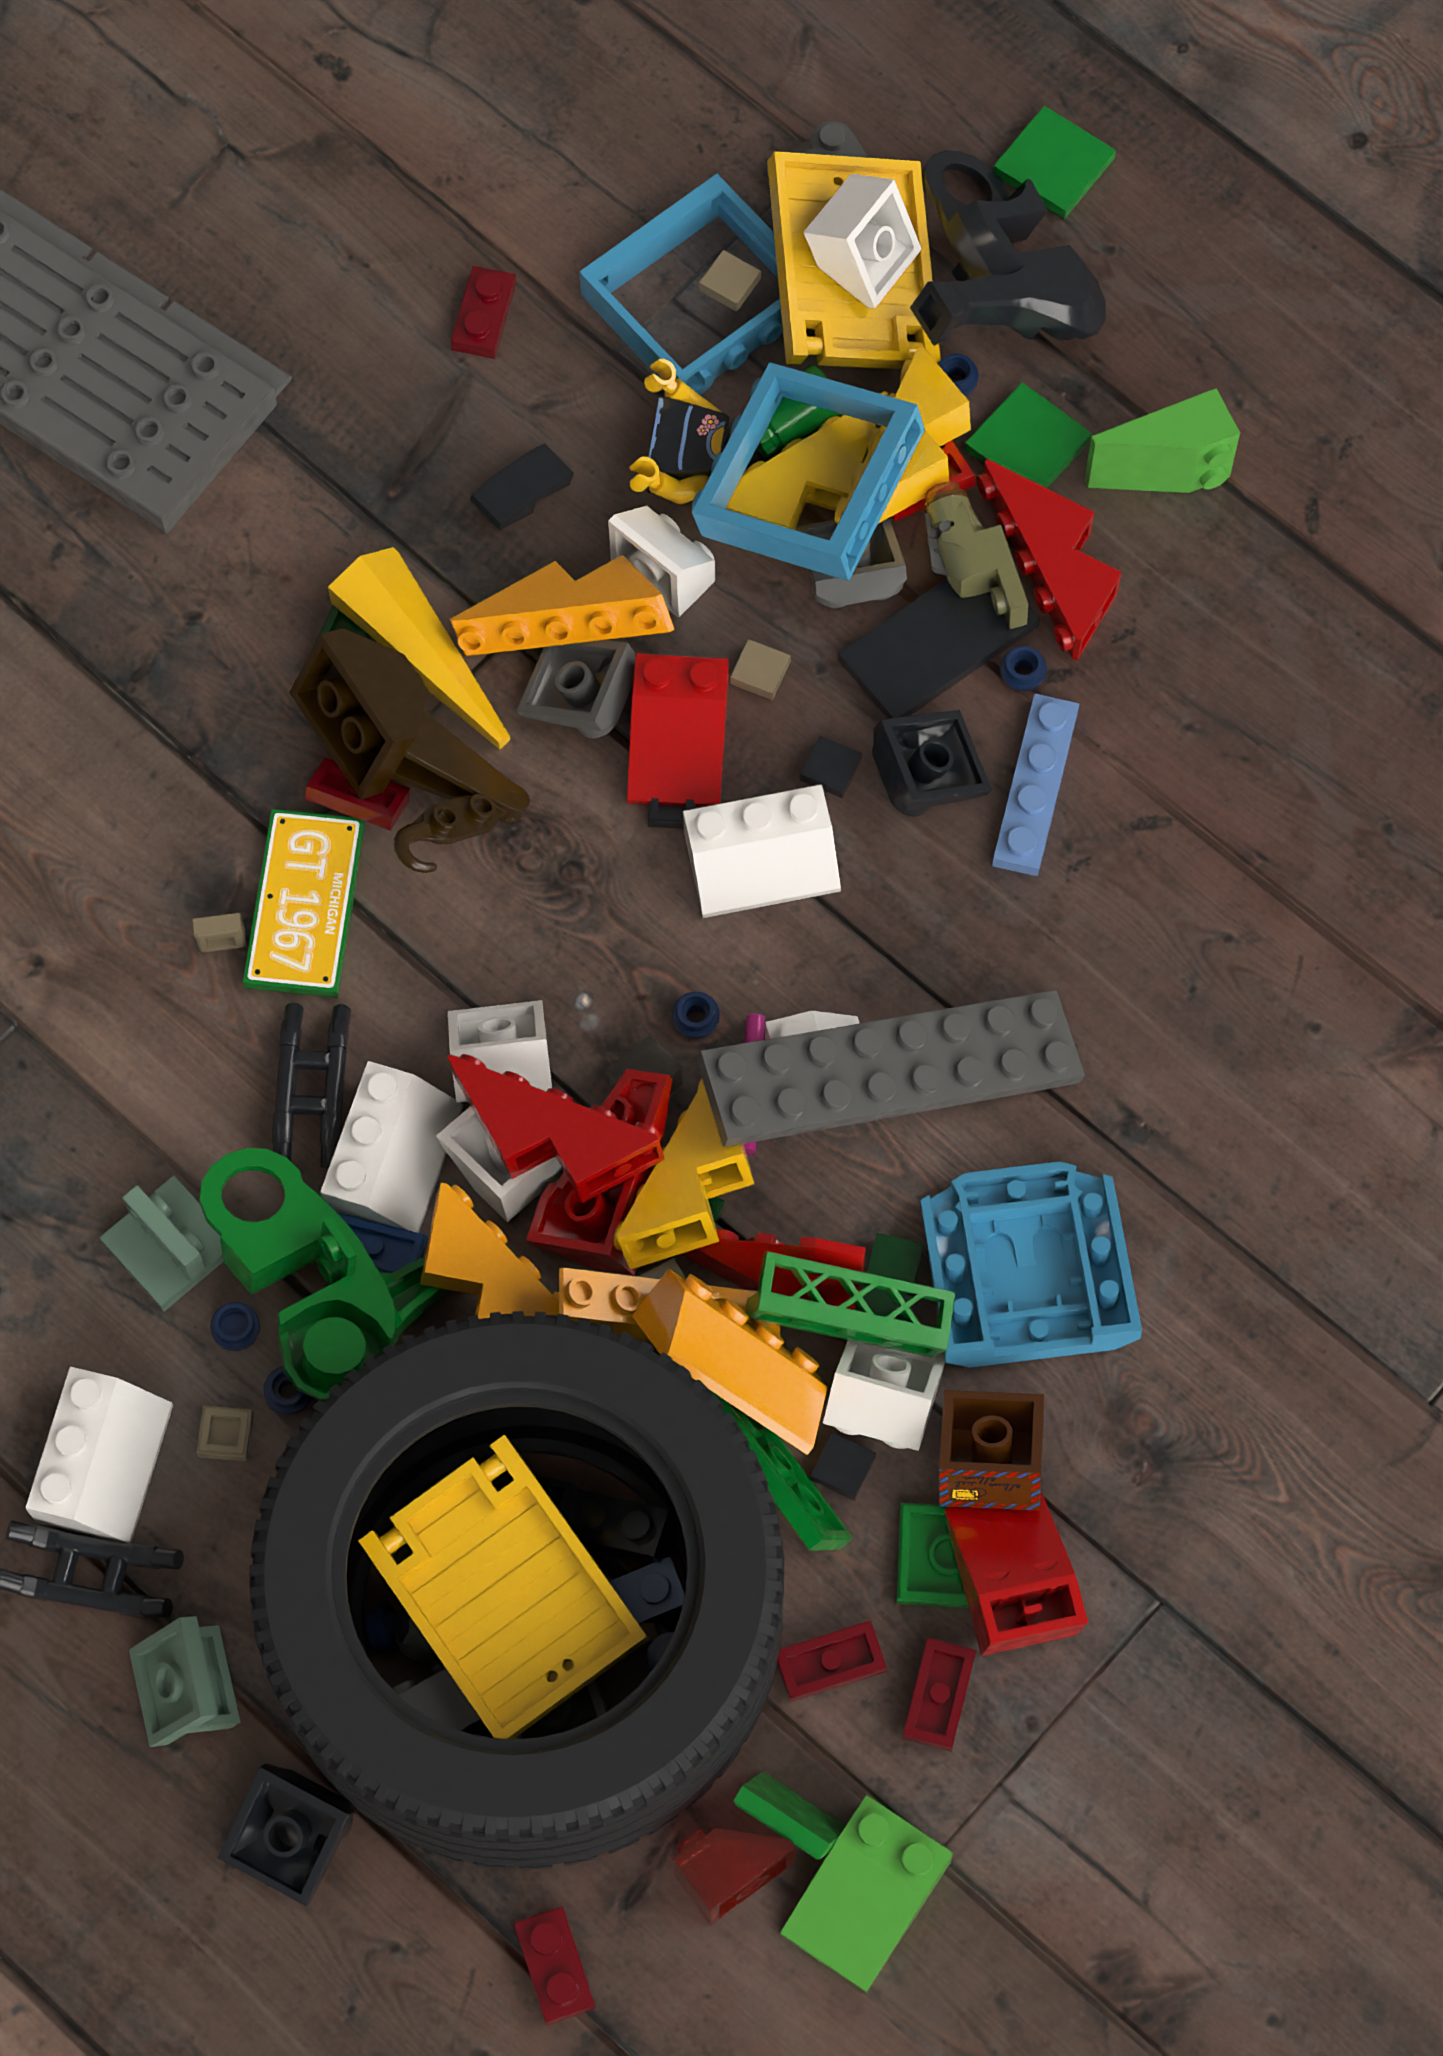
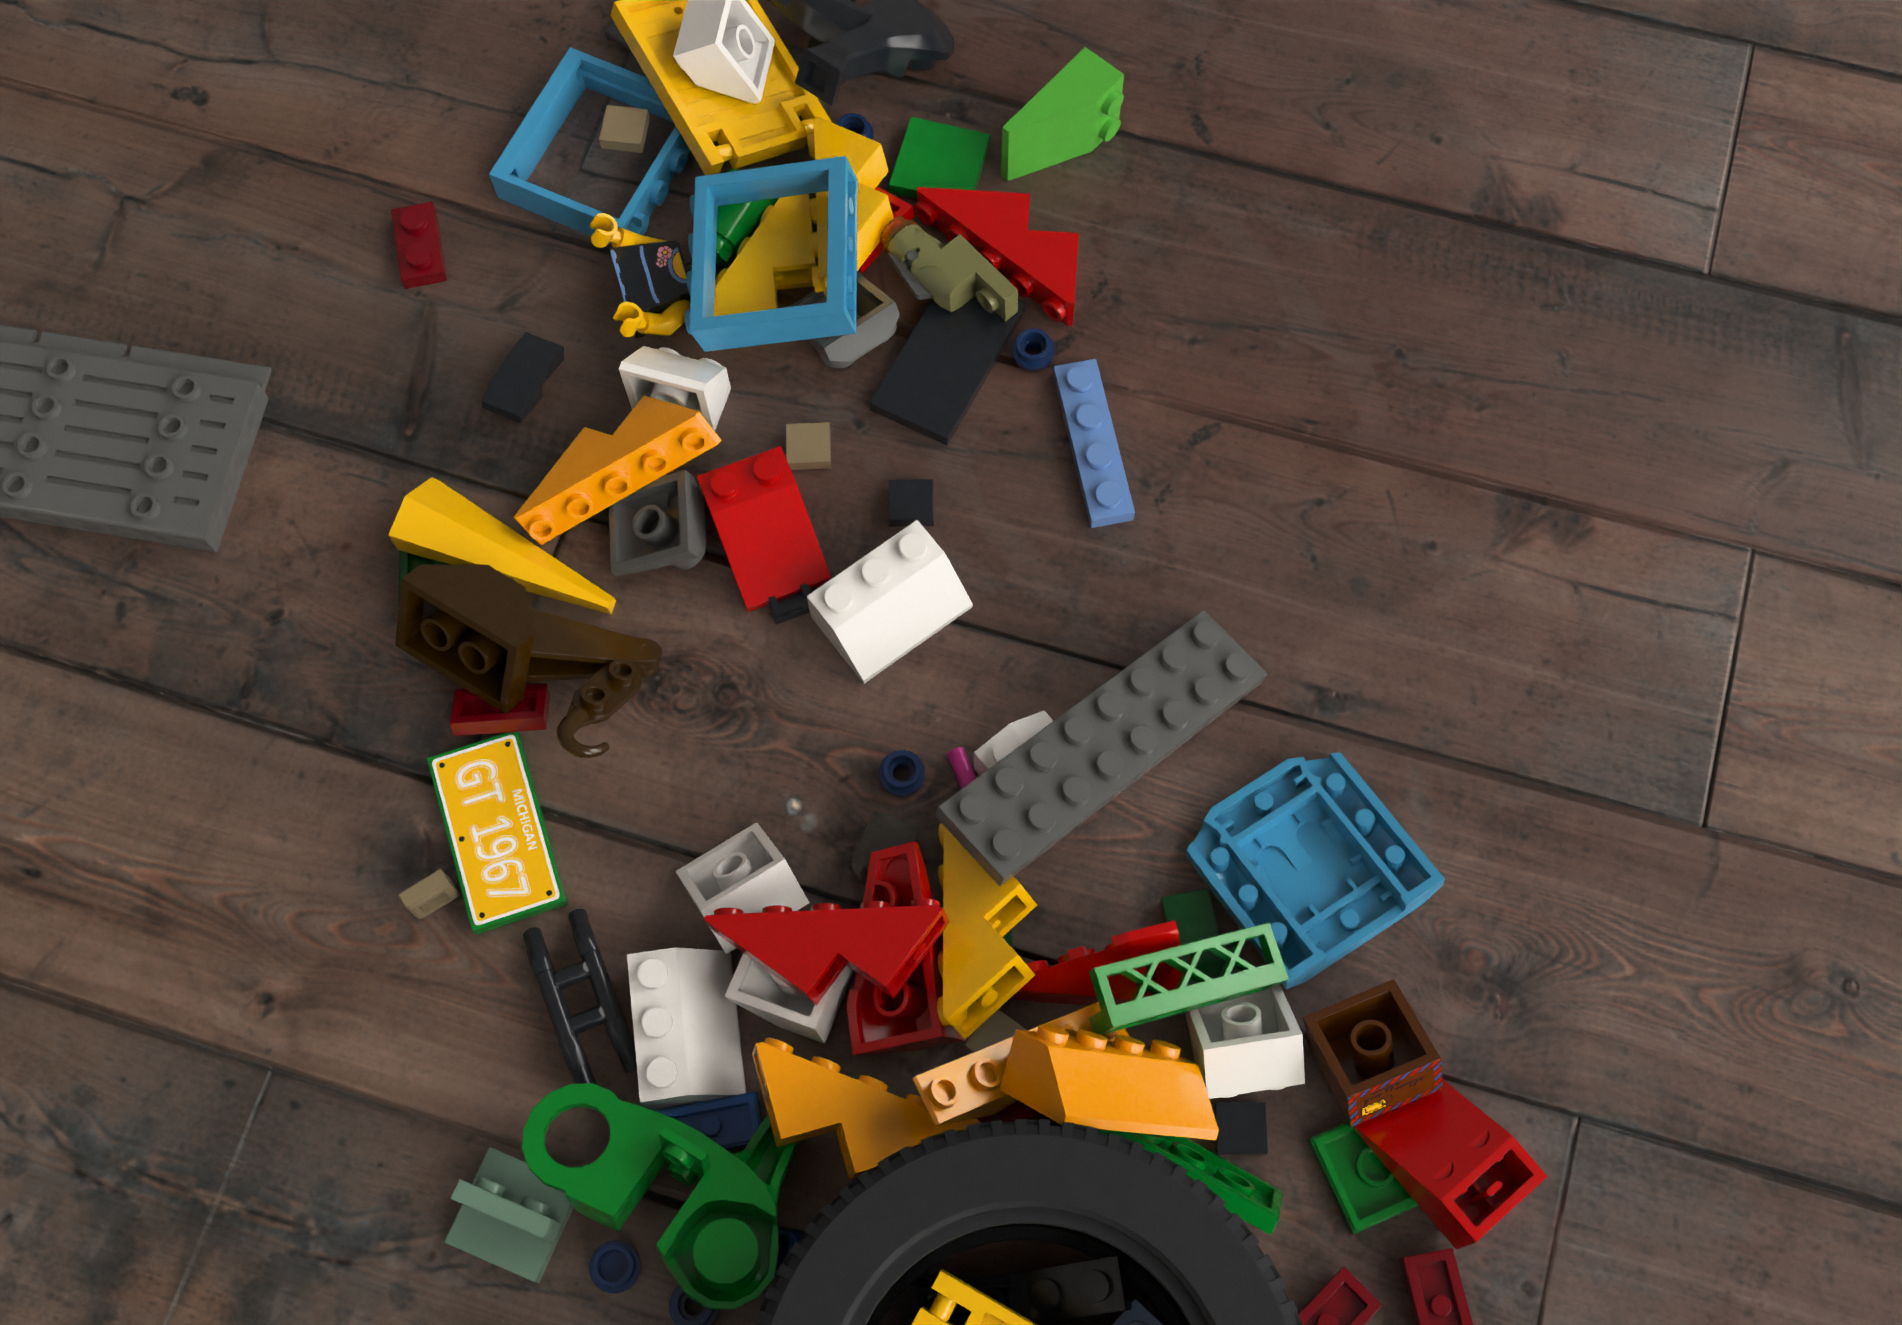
camera: 25 degrees left, 0 degrees up
(927, 761) = (994, 462): black slope -> none

